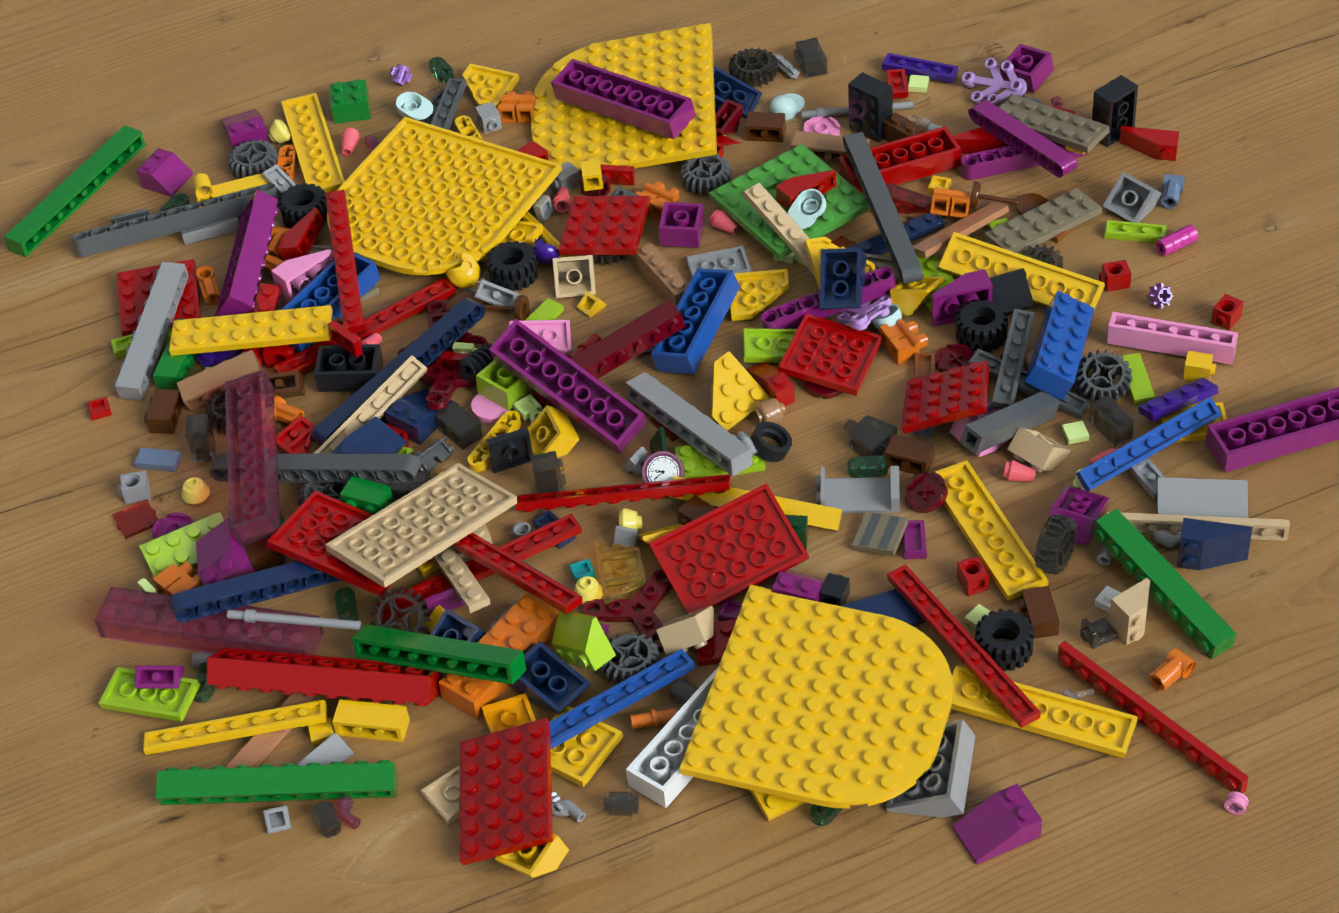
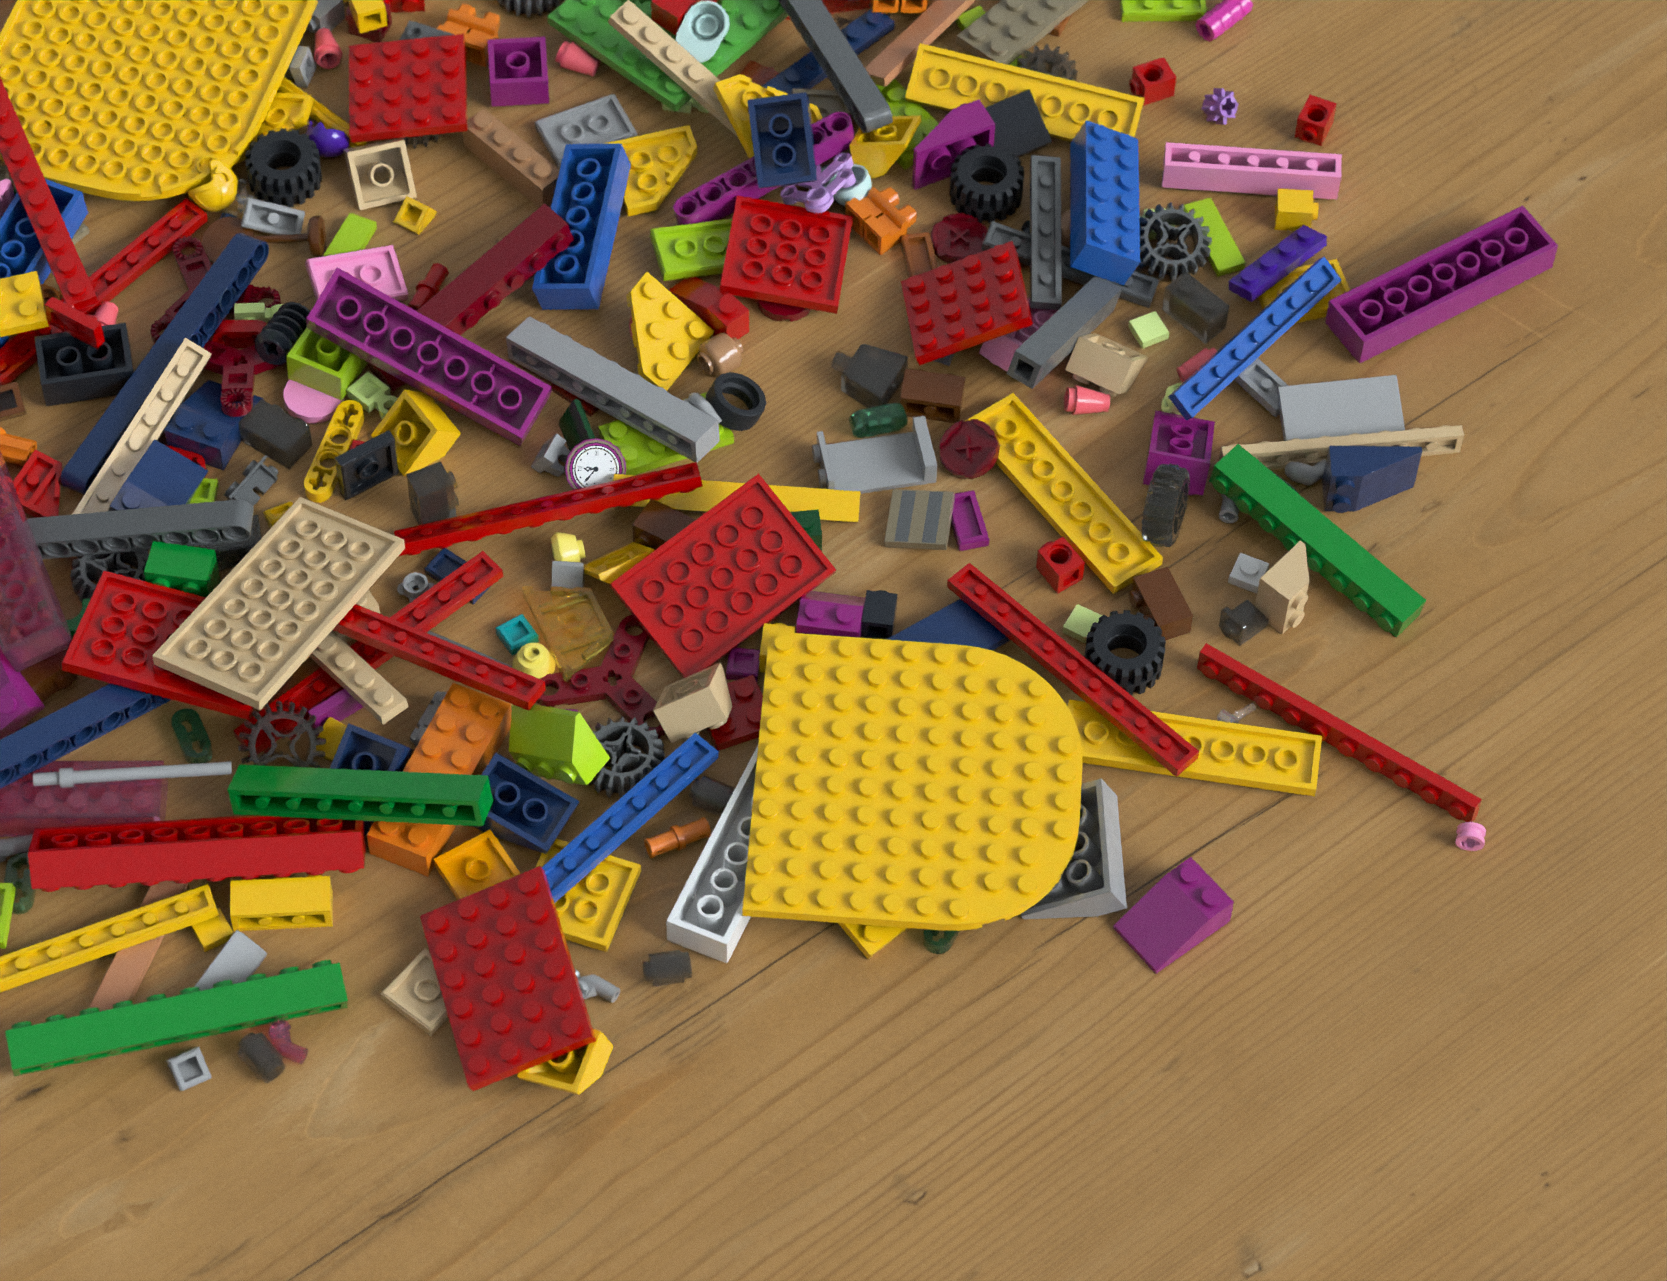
camera: 20 degrees left, 10 degrees up
(1175, 666) = (1354, 656): orange piece -> none

